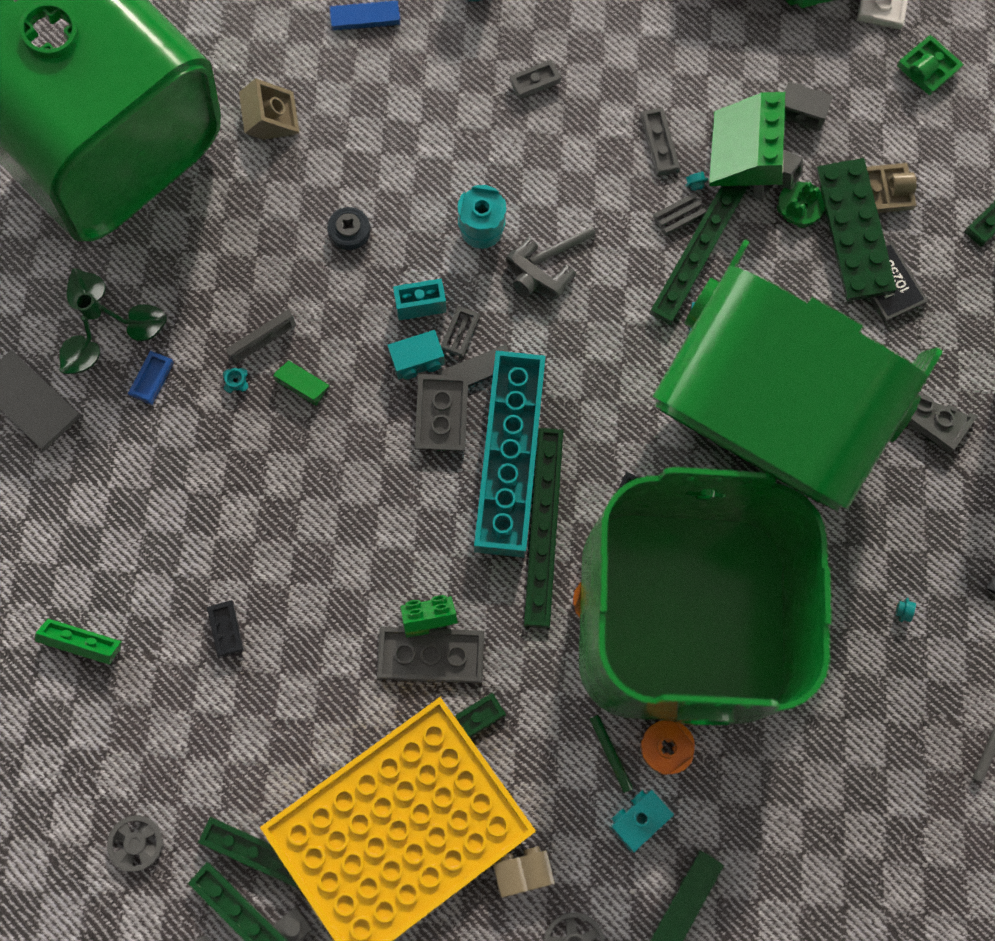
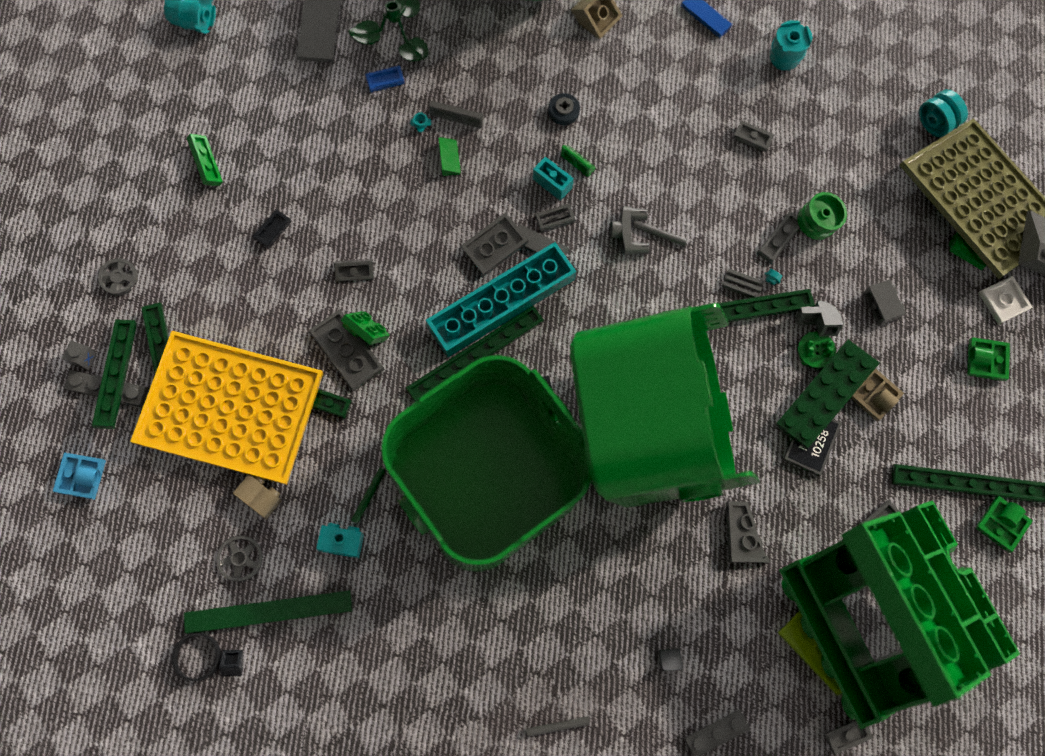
camera: 50 degrees right, 0 degrees up
(346, 577) = (354, 270): none -> dark grey slope
(416, 355) = (517, 203): teal brick -> none
(417, 261) = (577, 160): none -> green slope
(481, 216) = (632, 170): teal piece -> none
(664, 762) = (388, 532): orange plate -> none
(674, 86) = (822, 216): none -> green wheel
(749, 142) = (826, 287): slope -> none
(905, 610) = (600, 608): teal plate -> none

